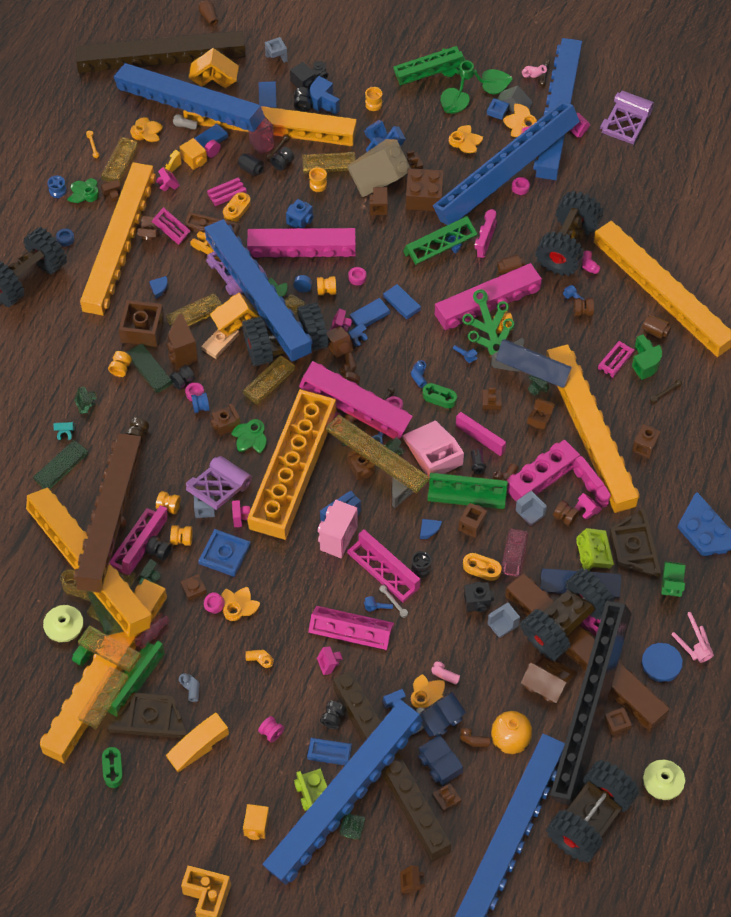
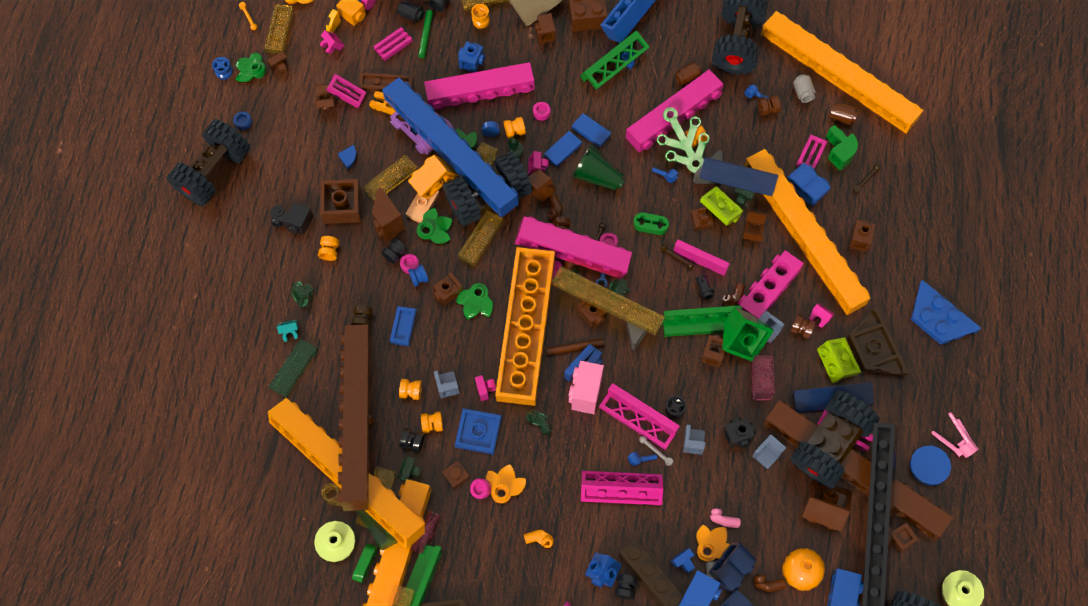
camera: 10 degrees left, 10 degrees up
(94, 333) = (295, 220): none -> black brick
(109, 649) = (389, 565): clear yellow plate -> none
(118, 239) = (296, 114): light orange brick -> none
(136, 552) = (400, 420): dark pink fence -> none
(149, 368) = (358, 246): clear green tile -> none
(175, 446) = (403, 326): none -> blue tile
(190, 684) = (478, 581): sand blue arm -> none
(227, 475) = (463, 349): medium lavender piece -> none
(229, 363) = (436, 225): none -> green plate
(239, 205) = (406, 57): light orange plate -> none
(260, 188) = (425, 34): none -> green bar
(286, 552) = (539, 419): none -> clear green arm
(314, 694) = (603, 570): none -> blue brick
(324, 304) = (515, 146): none -> clear green arm
(328, 660) = (608, 528): dark pink tile -> none
(334, 493) = (574, 346): none -> reddish brown bar
(357, 332) = (555, 171): blue tile -> none
(398, 336) = (598, 170): none -> dark green cone
(417, 373) = (623, 203): blue arm -> none
(429, 528) = (673, 366): blue tile -> none
(431, 598) = (693, 441): none -> sand blue panel
(434, 448) = (659, 282): bright pink slope -> none
(447, 420) = (664, 248): none -> dark brown hinge
(482, 566) = (734, 398): light orange plate -> none
(486, 233) = (657, 43): dark pink hinge -> none
(504, 508) = (744, 334): none -> green slope
(512, 389) = (721, 206): none -> lime bracket
(588, 264) = (765, 60): dark pink arm -> none
(592, 481) = (820, 288): dark pink hinge -> none
(604, 385) = (809, 184): none -> blue brick
(623, 297) = (804, 88): none -> light grey brick
(673, 579) = (922, 376): green brick -> none

